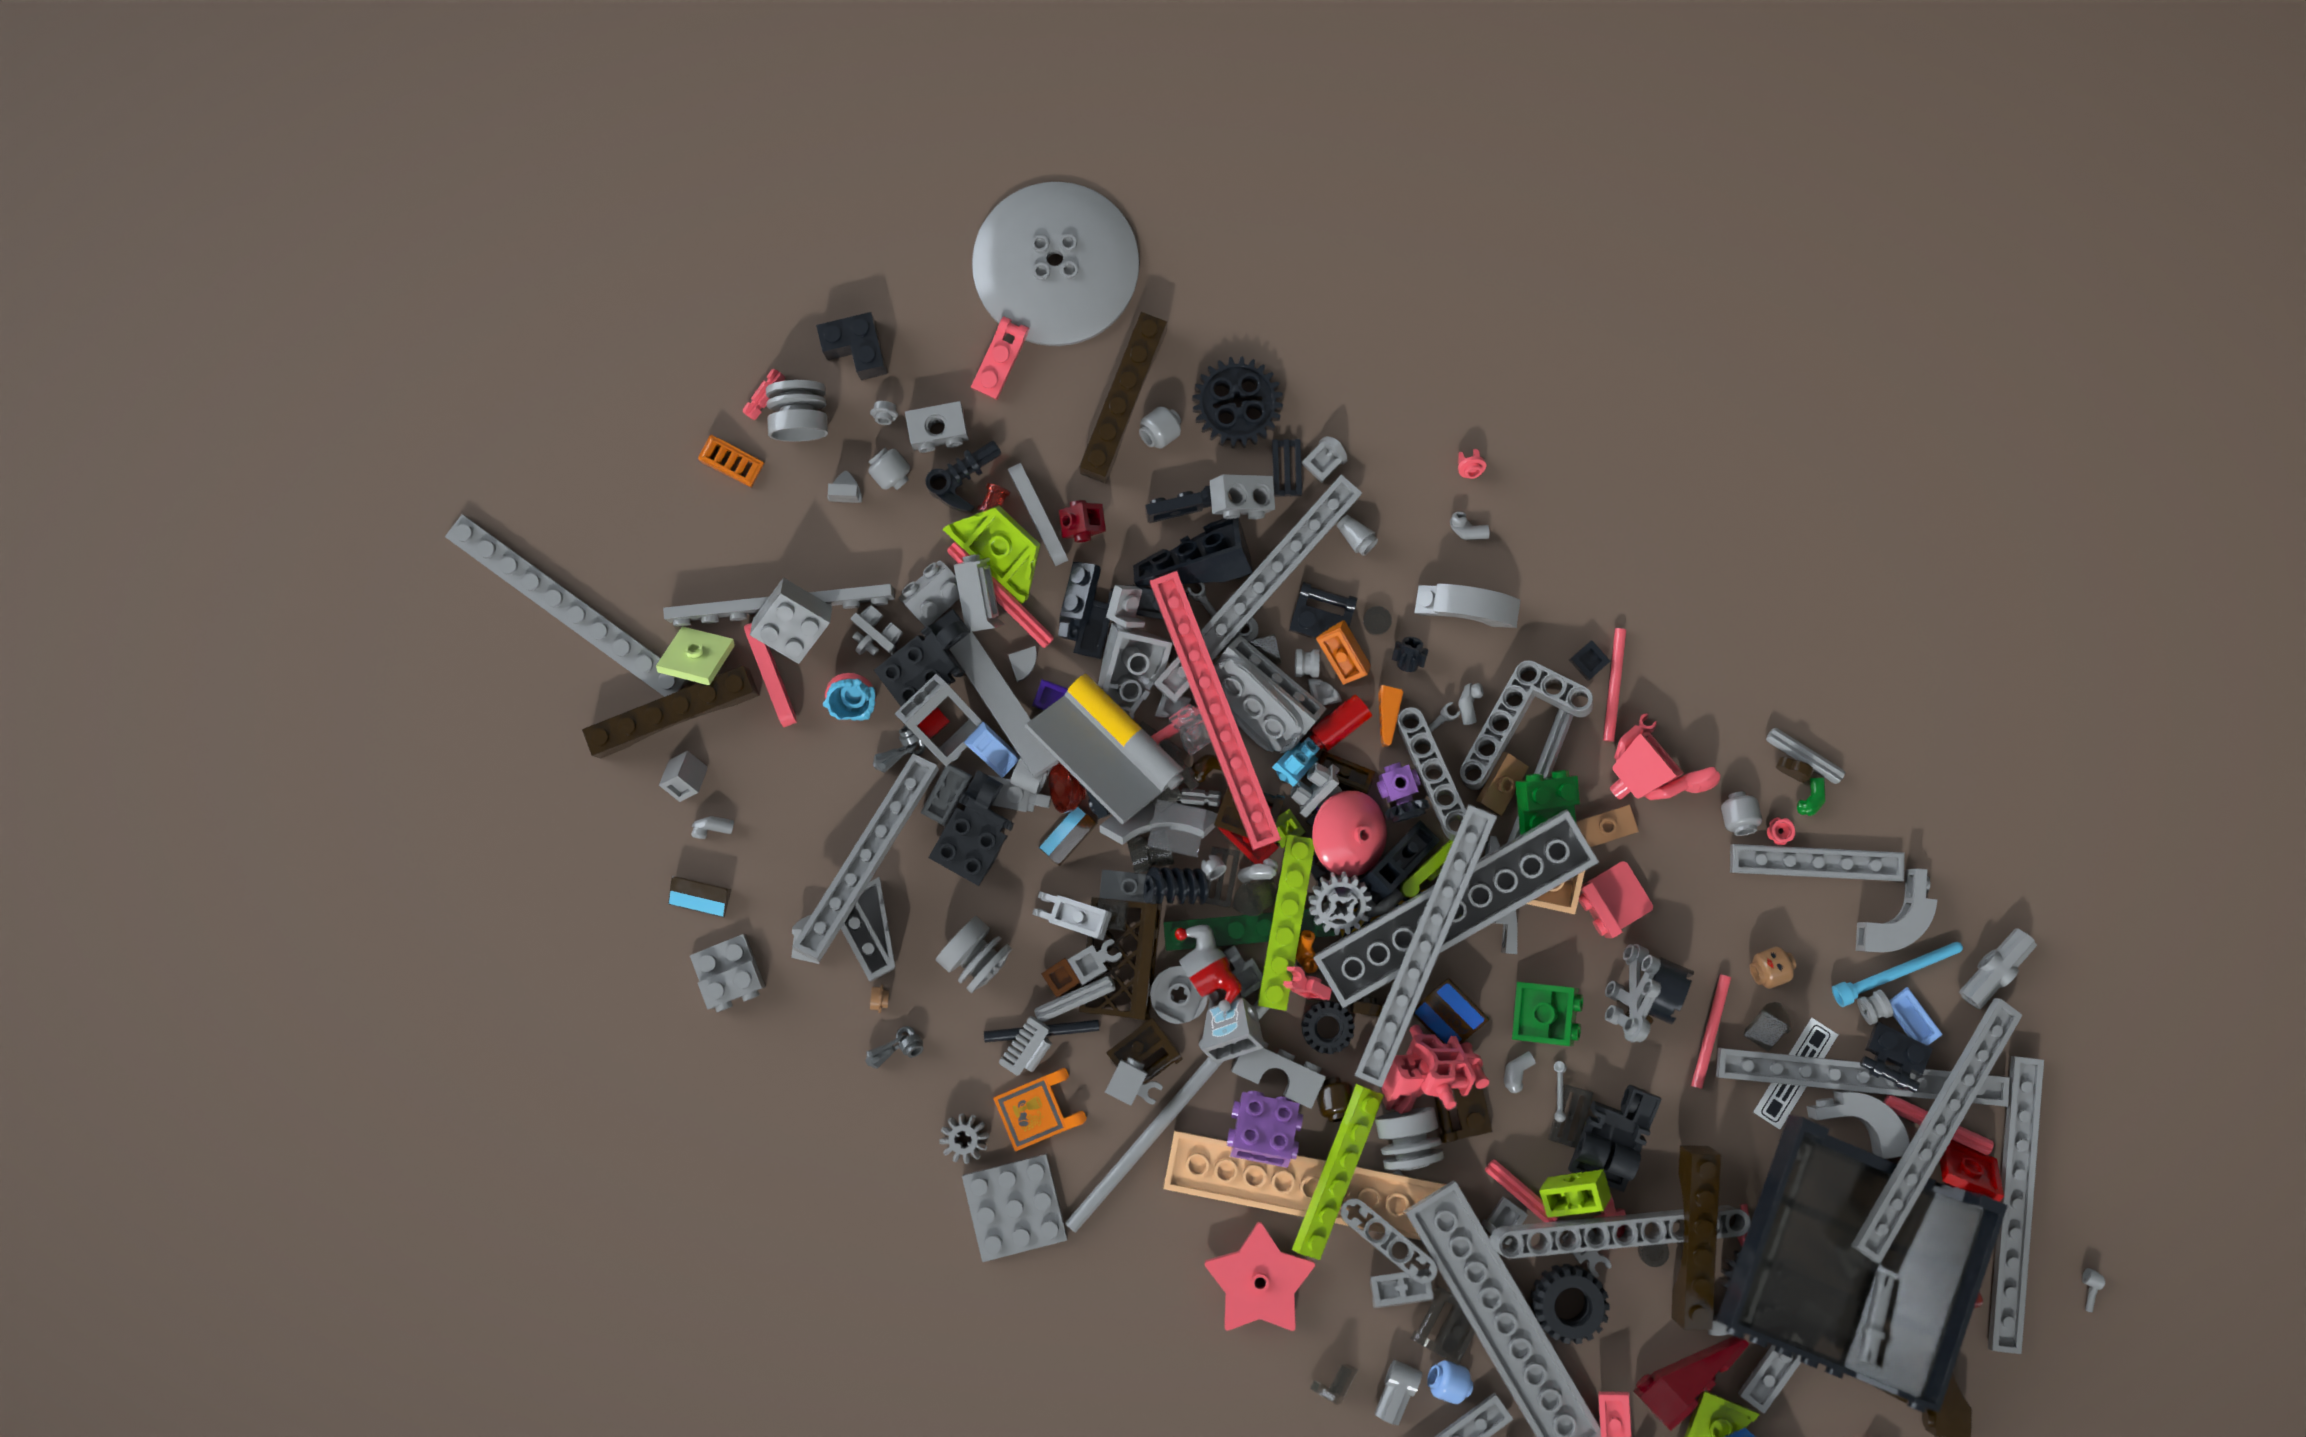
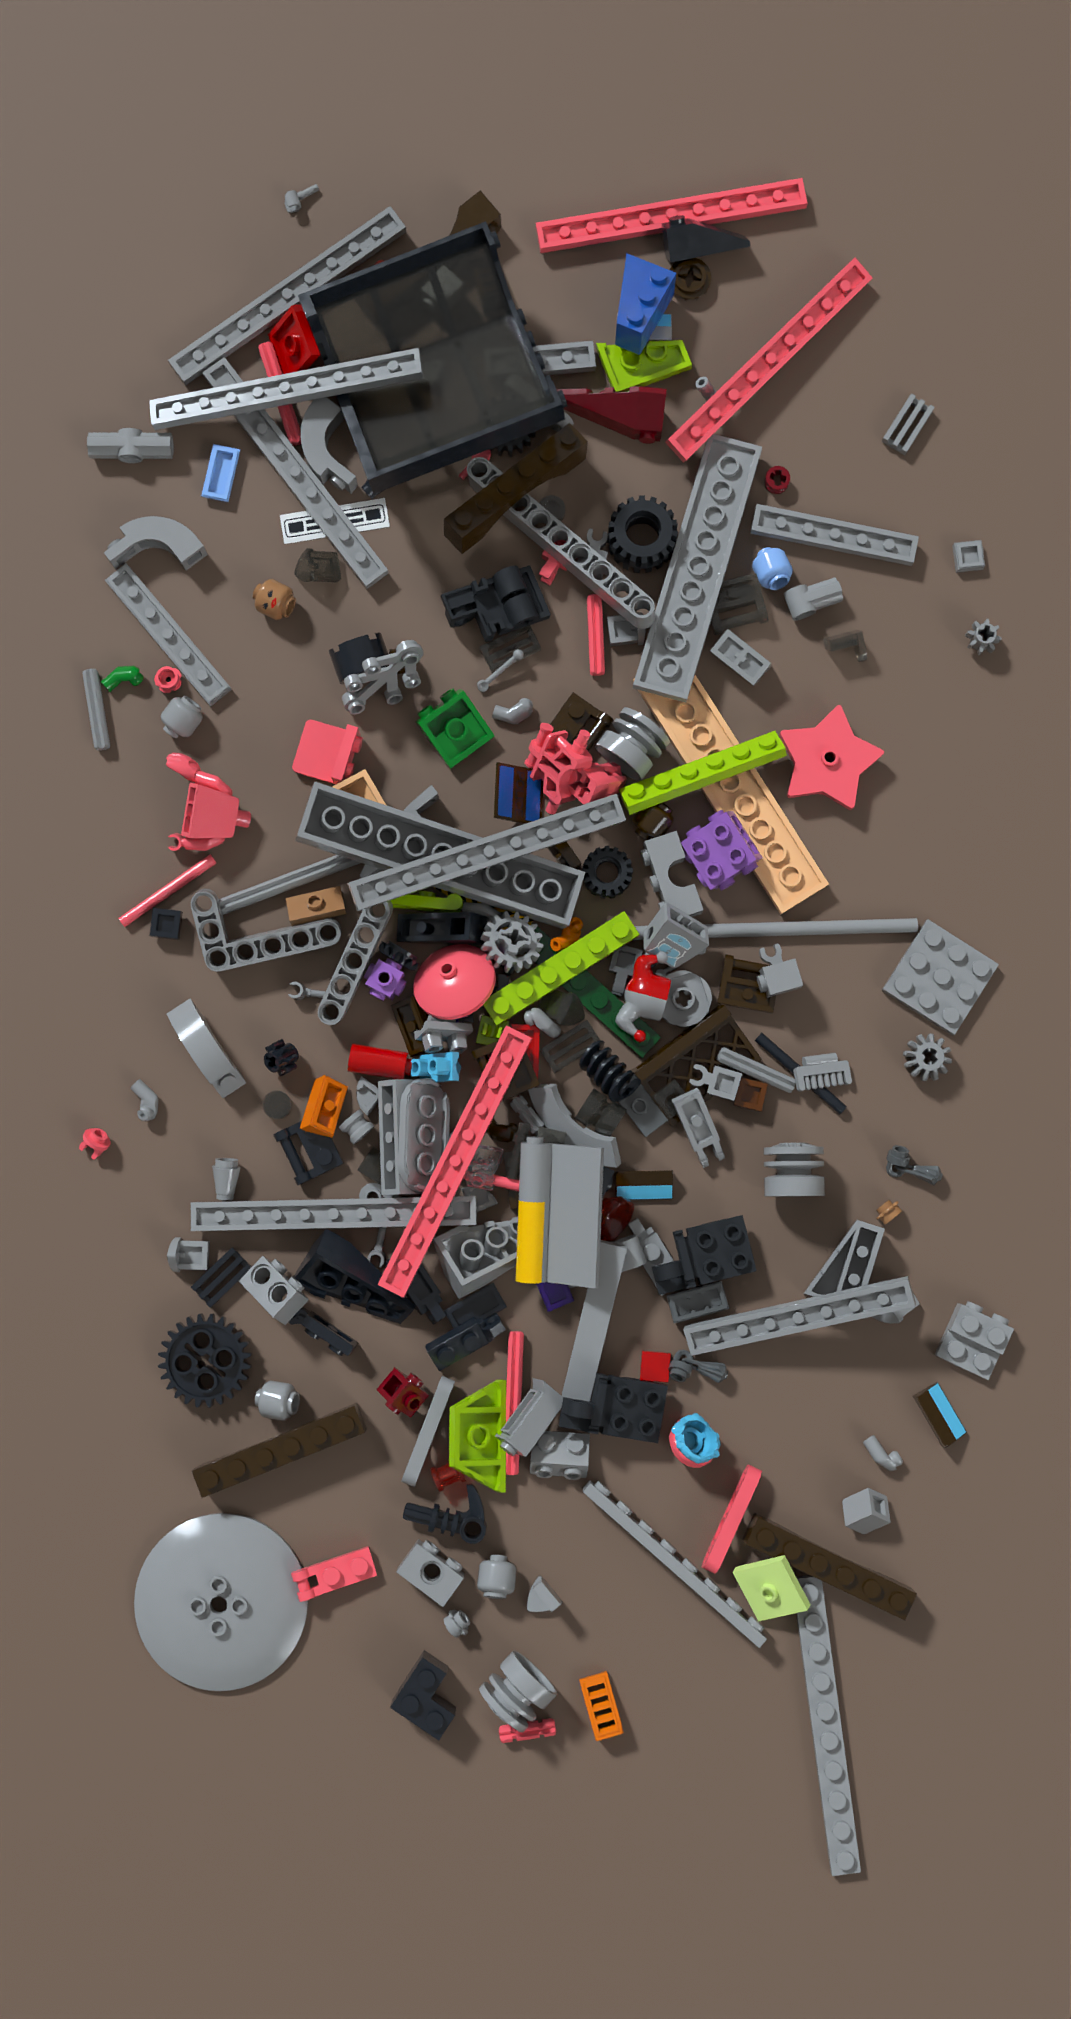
camera: 135 degrees left, 0 degrees up
(791, 620) = (679, 1540): light grey brick -> none
(867, 621) = (627, 1483): light grey hips -> none
(923, 703) = (649, 1380): light grey window -> none
(992, 749) = (634, 1299): light blue tile -> none
(1023, 662) = (548, 1337): light grey tile -> none
(1033, 1111) = (862, 1024): orange flag -> none
(1124, 607) = (439, 1299): light grey bracket -> none
(1176, 828) = (567, 1108): clear piece -> none
(1214, 867) = (570, 1056): light grey hinge -> none
(1307, 986) = (592, 913): coral plate -> none
(1389, 707) = (335, 1036): orange slope -> none
(1390, 1237) = (713, 695): light grey beam -> none
(1466, 702) = (279, 985): light grey arm -> none
(1545, 797) = (299, 864): green plate -> none
(1575, 1193) = (563, 595): lime brick -> none
(1608, 826) = (278, 804): medium nougat plate -> none
(1711, 1031) = (359, 603): coral bar -> none
(1794, 768) = (113, 707): dark brown tile -> none
(1846, 992) = (245, 534): medium azure piece -> none
(1875, 1007) = (237, 505): light grey wheel -> none
(1875, 1318) = (468, 314): light grey pin -> none
(1900, 1050) = (252, 461): black plate -> none

